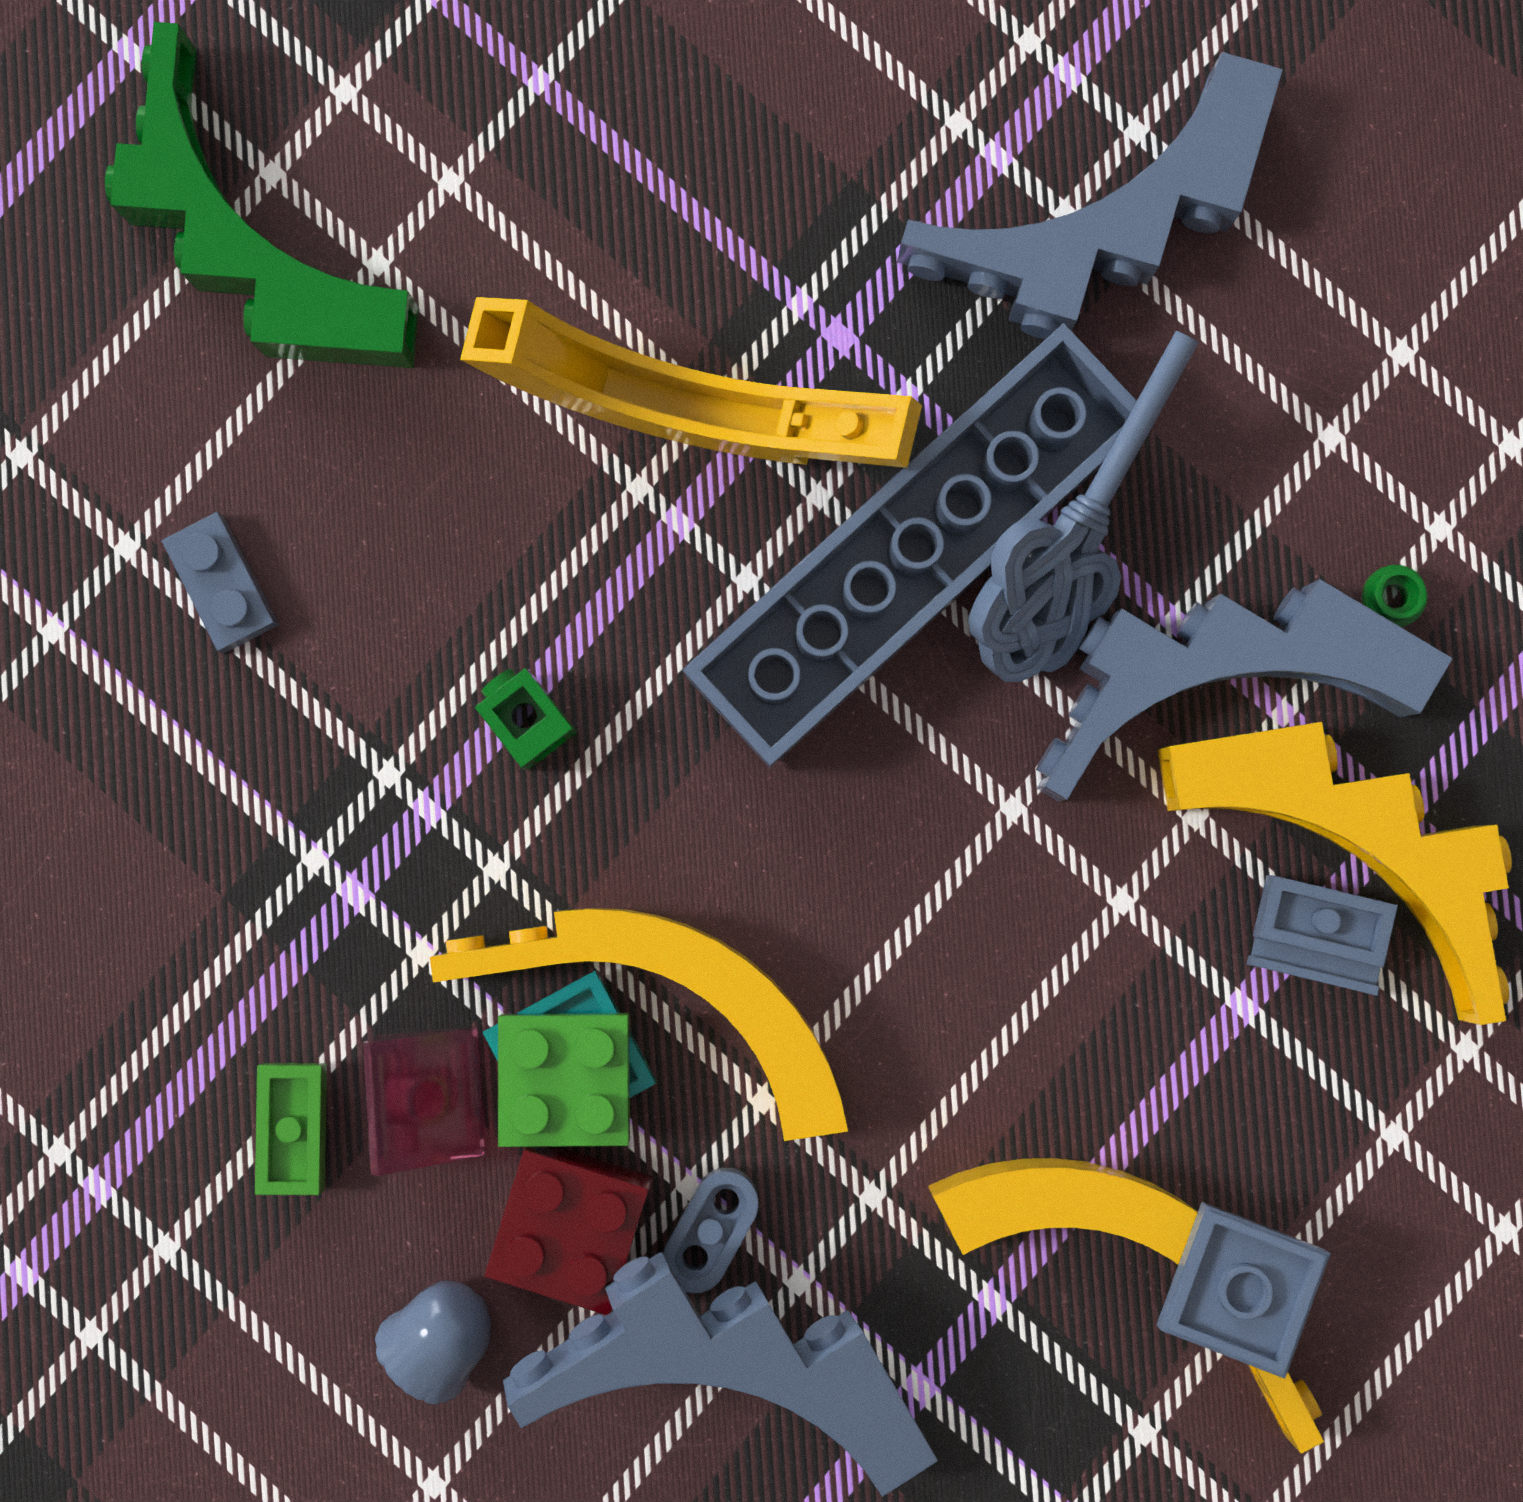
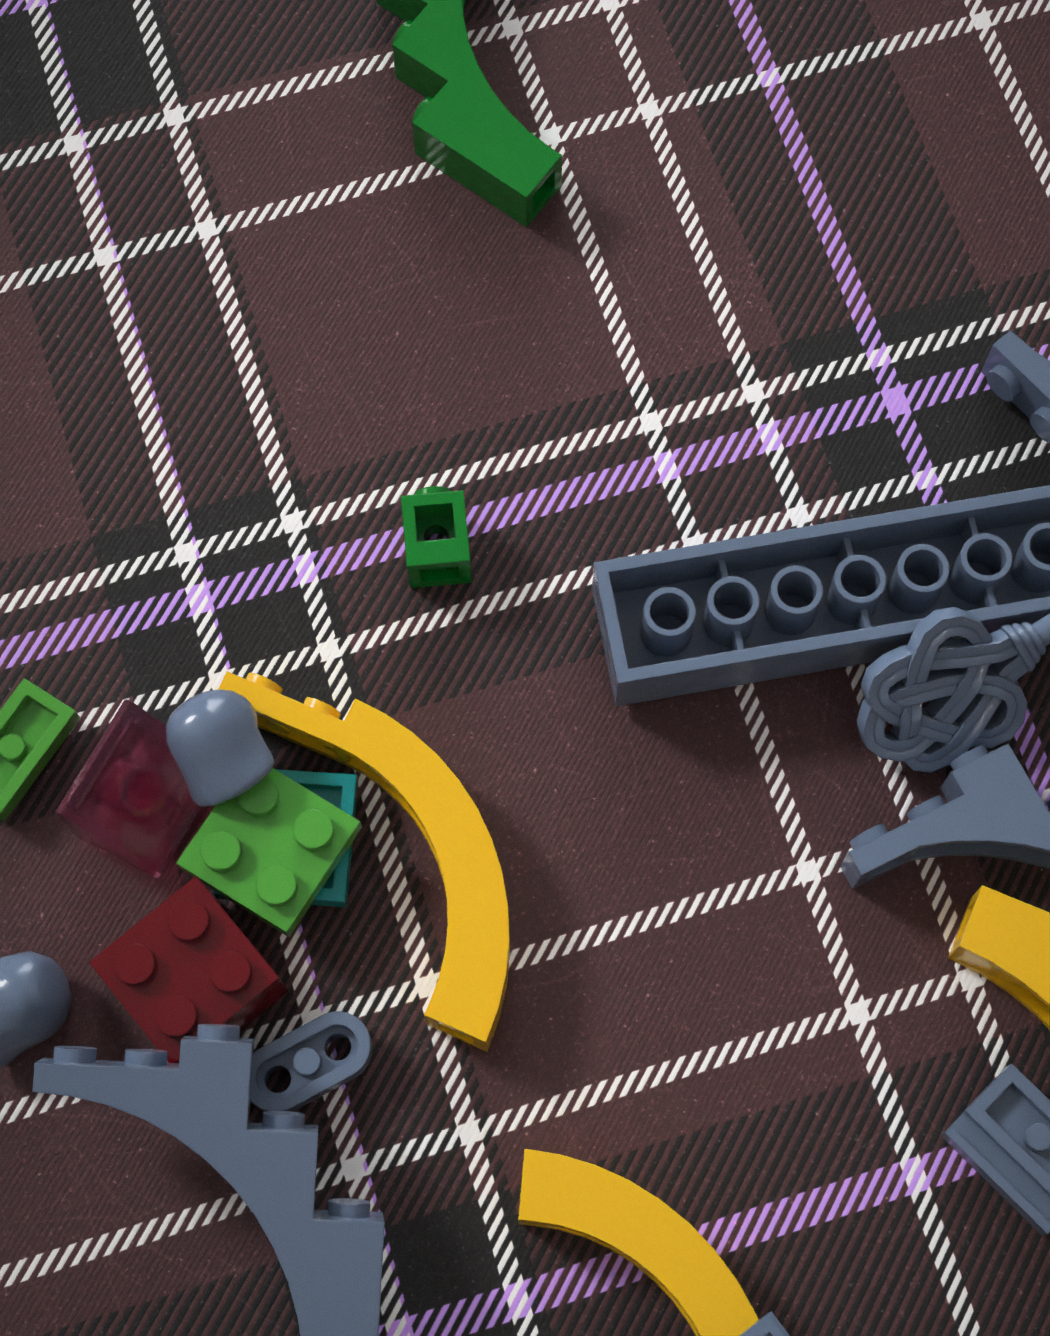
camera: 30 degrees right, 15 degrees down
(220, 582) = (261, 295): sand blue plate -> none
(468, 1029) = (217, 746): none -> sand blue hair
(697, 408) = (722, 365): yellow arch -> none

